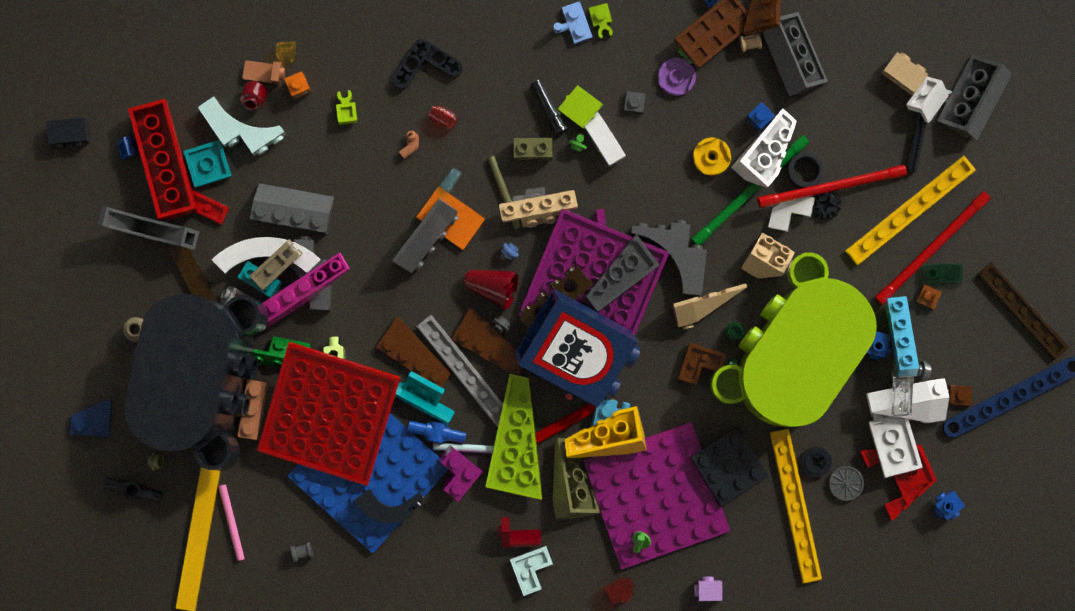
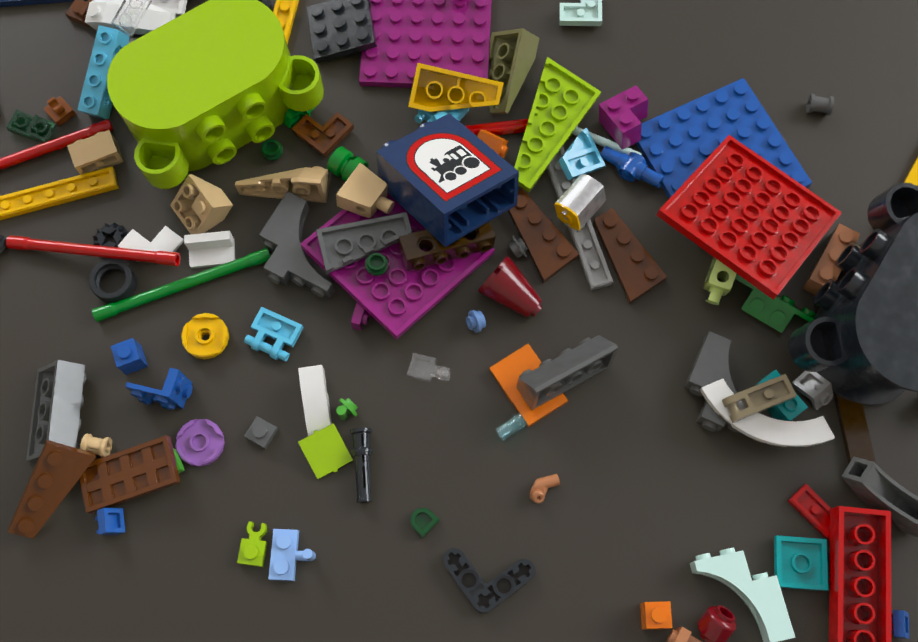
camera: 155 degrees left, 15 degrees down
(231, 522) = (888, 155): bright pink bar -> none
(292, 208) = (713, 467): dark grey slope -> none
(304, 289) = (734, 358): dark pink slope -> none
(346, 111) = (605, 558): lime plate -> none
(383, 513) = (717, 101): black arch -> none
(425, 397) = (636, 207): teal bracket -> none
(443, 117) = (490, 503): clear red brick -> none
(465, 377) = (580, 201): none -> flat silver piece
(480, 422) = (581, 157): none -> medium azure wing
(487, 86) = (423, 521): none -> dark green tile
(502, 187) = (455, 389): olive bar -> none
(518, 538) = (583, 39): dark red bracket -> none
(532, 148) = (401, 422): olive brick -> none
(538, 209) = (423, 351): tan bracket -> none
(557, 403) = (495, 142): none -> orange brick
(602, 258) = (376, 264): none -> dark green plate
(637, 314) = (364, 193): none -> tan torso
(660, 185) = (276, 327): none -> medium azure plate
(665, 338) = (344, 163): none -> green wheel
(708, 106) = (174, 392): none -> blue bracket
(741, 226) = (210, 249): none -> white panel
(763, 157) = (150, 312): white wedge -> none
(876, 269) = (95, 152): none -> tan brick

